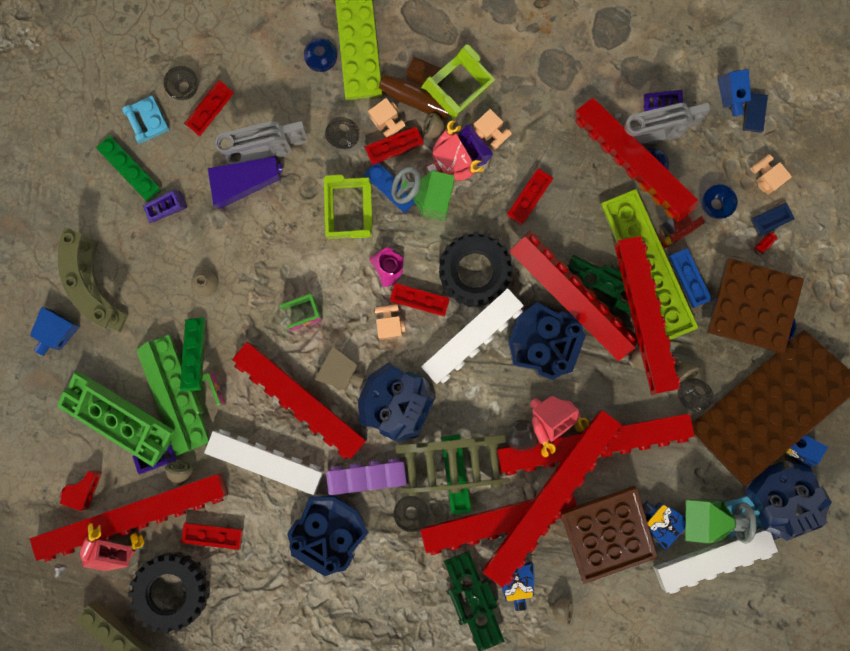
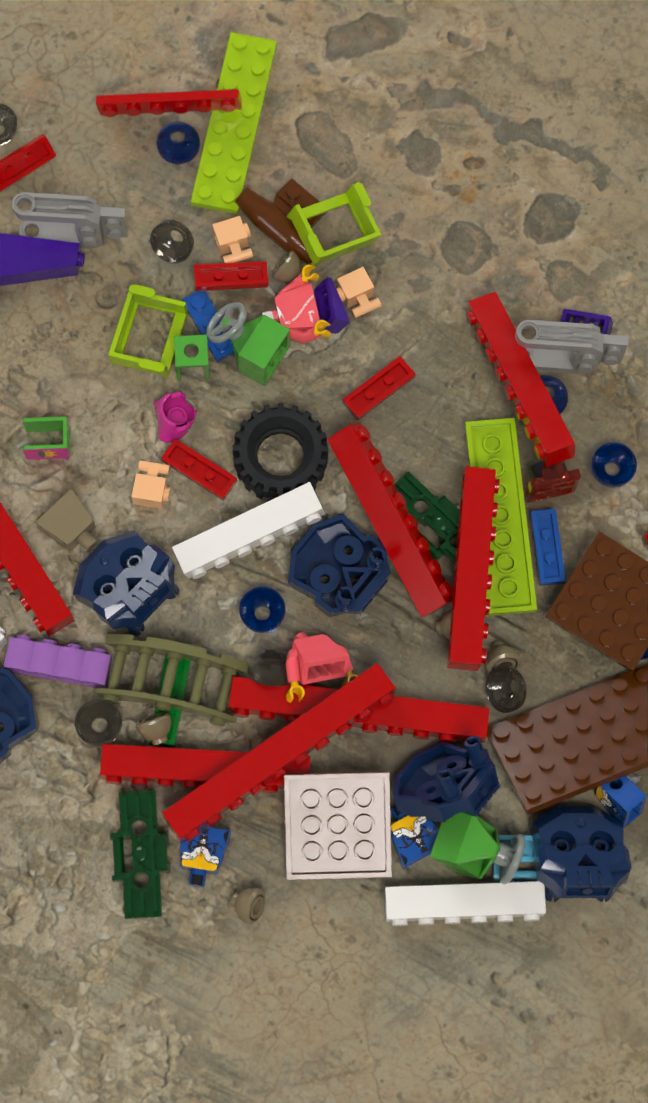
camera: 10 degrees right, 10 degrees down
(305, 25) = (169, 102): none -> red plate
(382, 224) = (200, 360): none -> bright green piece
(453, 505) = (155, 727): none -> dark tan brick
(510, 386) = (258, 598): none -> clear blue piece
(693, 483) = (446, 781): none -> dark blue brick

